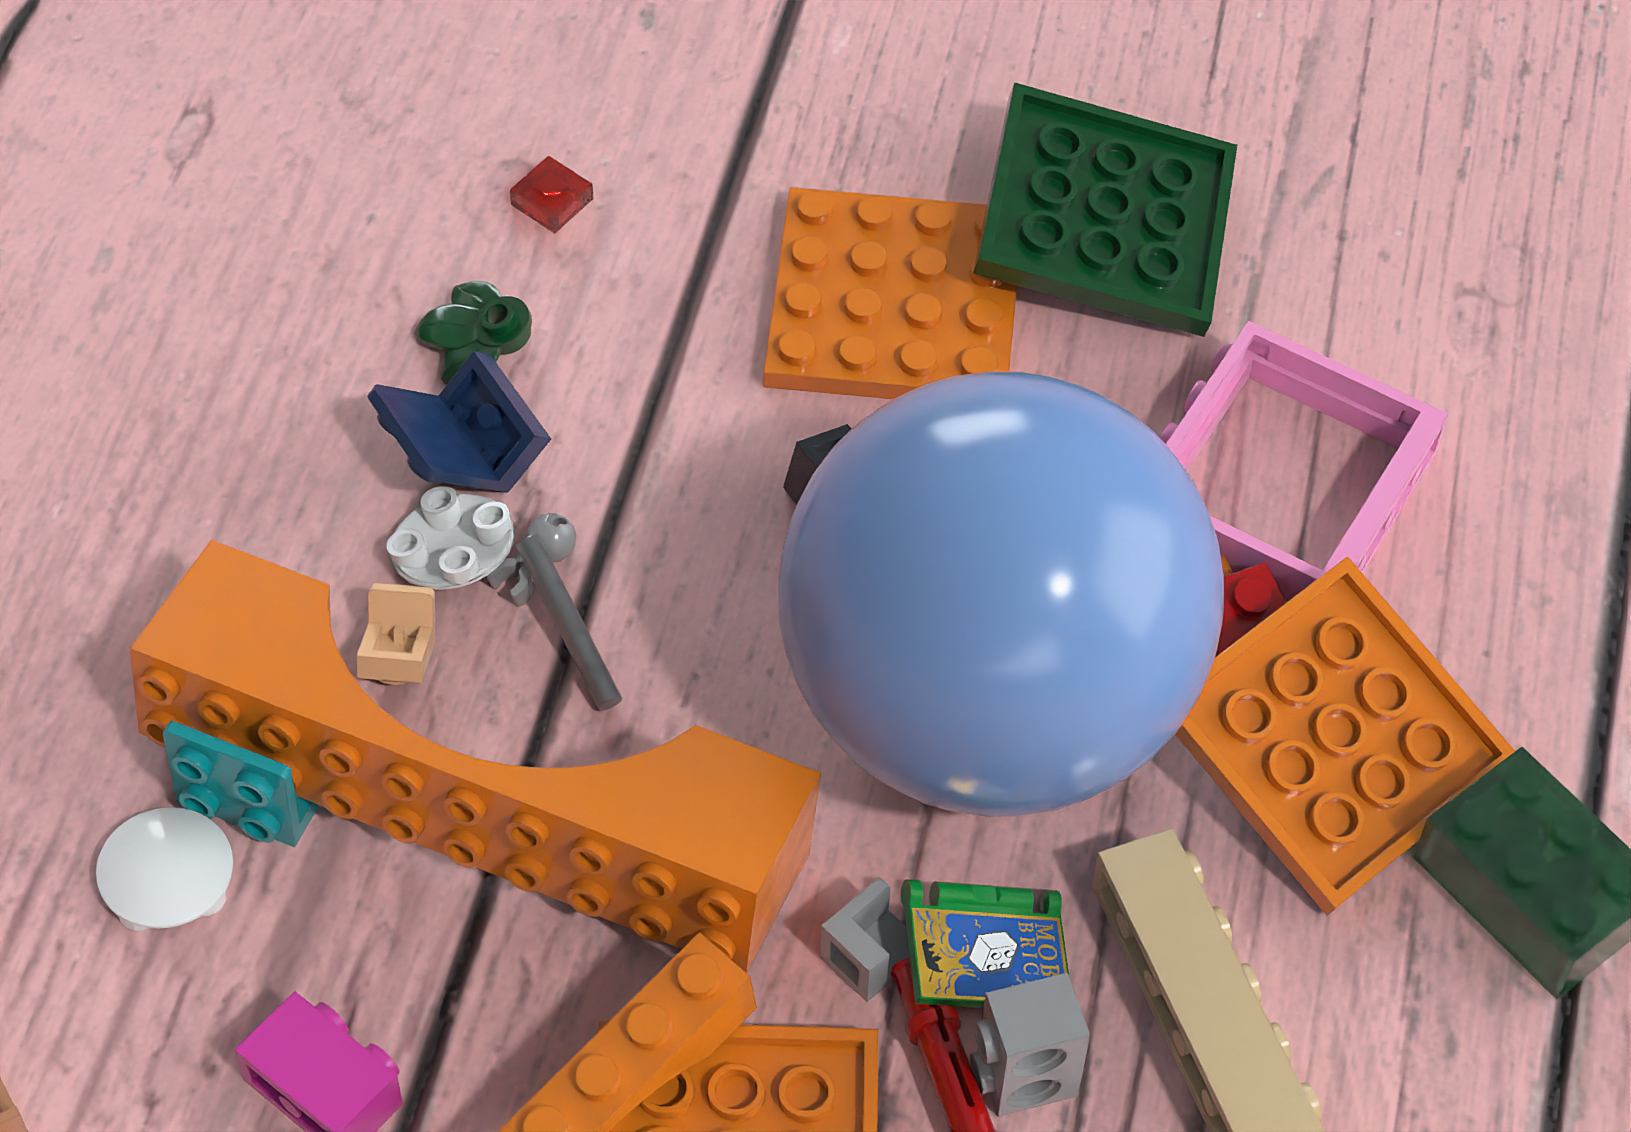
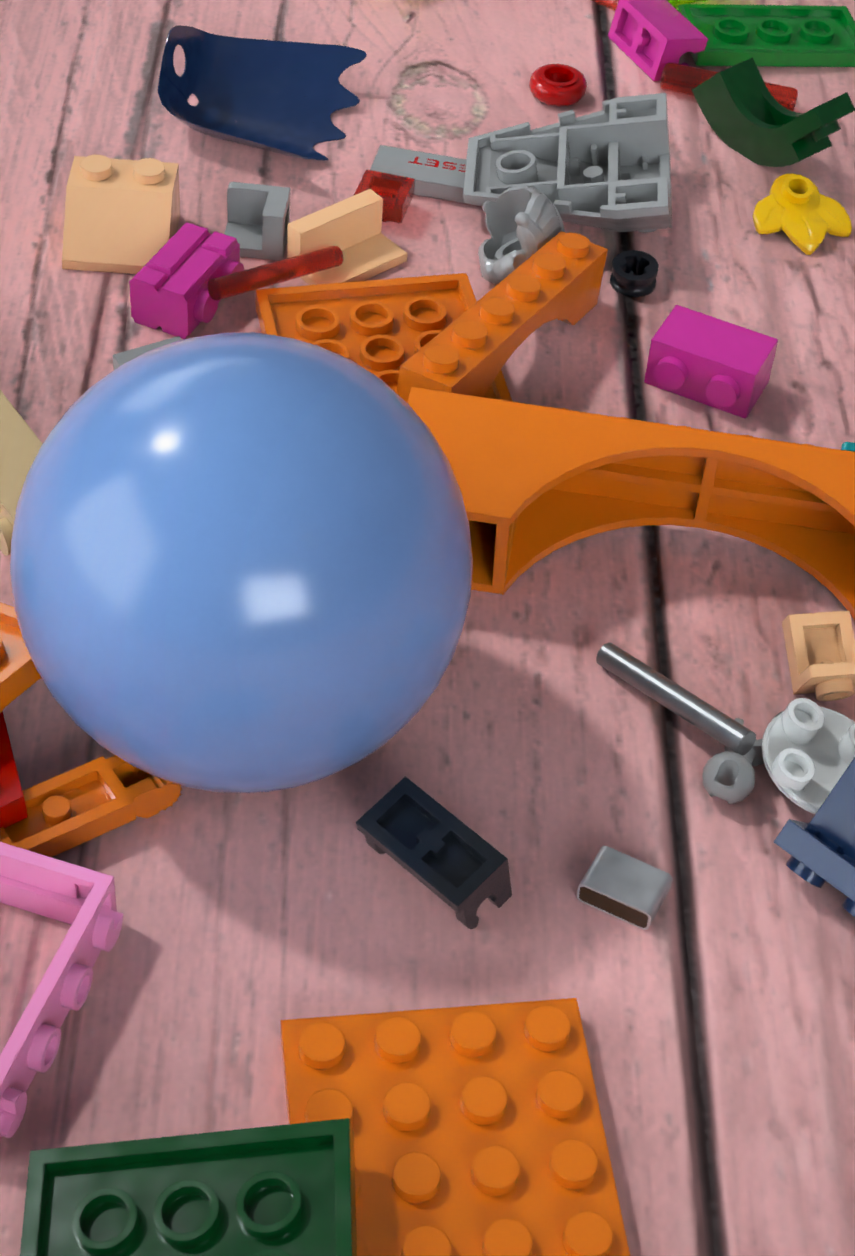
camera: 165 degrees right, 10 degrees down
(684, 467) = (624, 887): none -> flat silver piece

